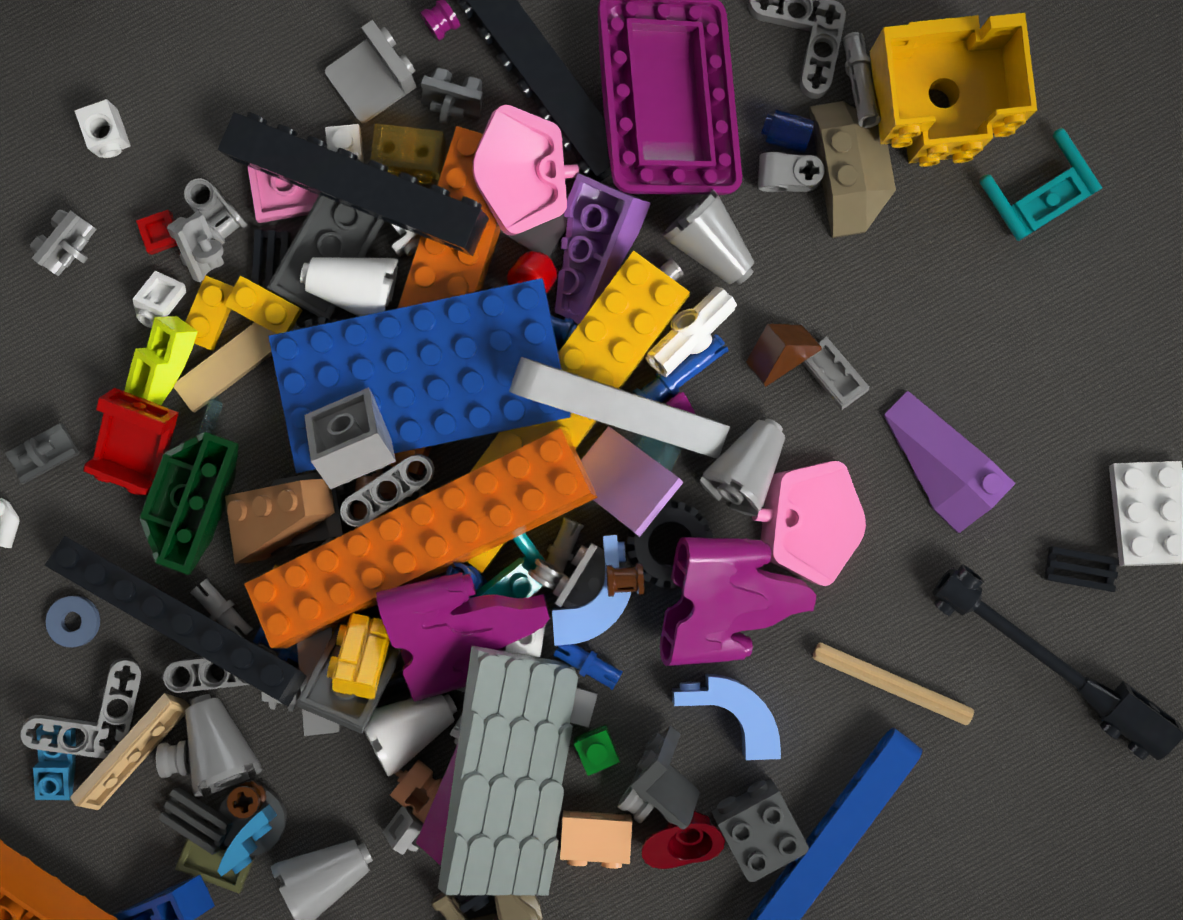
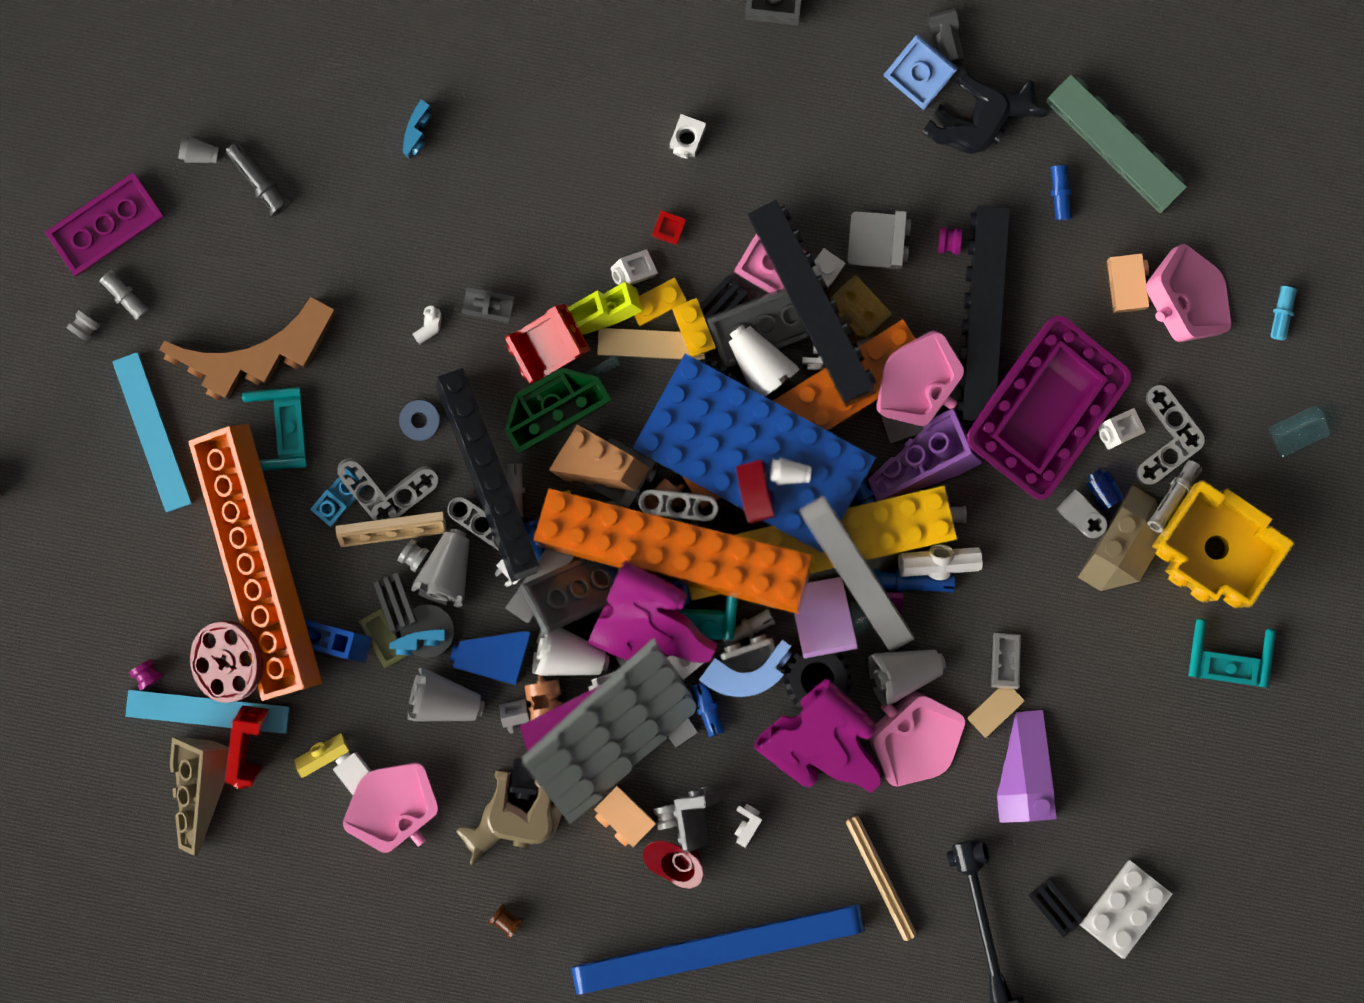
camera: 50 degrees right, 0 degrees up
(63, 243) = (606, 188): light grey hips -> none
(196, 245) = (686, 258): light grey hips -> none
(218, 212) = (713, 245): light grey piece -> none
(244, 809) = (431, 619): reddish brown bush -> none
(336, 792) = (493, 656): none -> blue slope
(348, 439) = (682, 456): light grey slope -> none
(360, 658) = (582, 589): yellow brick -> none
(449, 412) = (754, 491): none -> dark red slope
(450, 98) = (913, 295): dark grey hips -> none
(468, 364) = (788, 472): none -> white cone
(533, 266) = (875, 443): red head -> none
(545, 573) = (729, 633): light grey bush -> none
(596, 750) = (669, 764): green brick -> none
(625, 579) = (773, 676): reddish brown bush -> none
(712, 239) = (1000, 516): light grey cone -> none
(725, 749) = (746, 830): none -> white bracket
(754, 61) = (1121, 428): none -> white bracket
(757, 723) = (781, 821): light blue arch -> none
(760, 830) = (727, 895): dark grey bracket -> none
(781, 350) = (985, 619): reddish brown slope -> none
(863, 429) = (995, 710): none -> tan tile

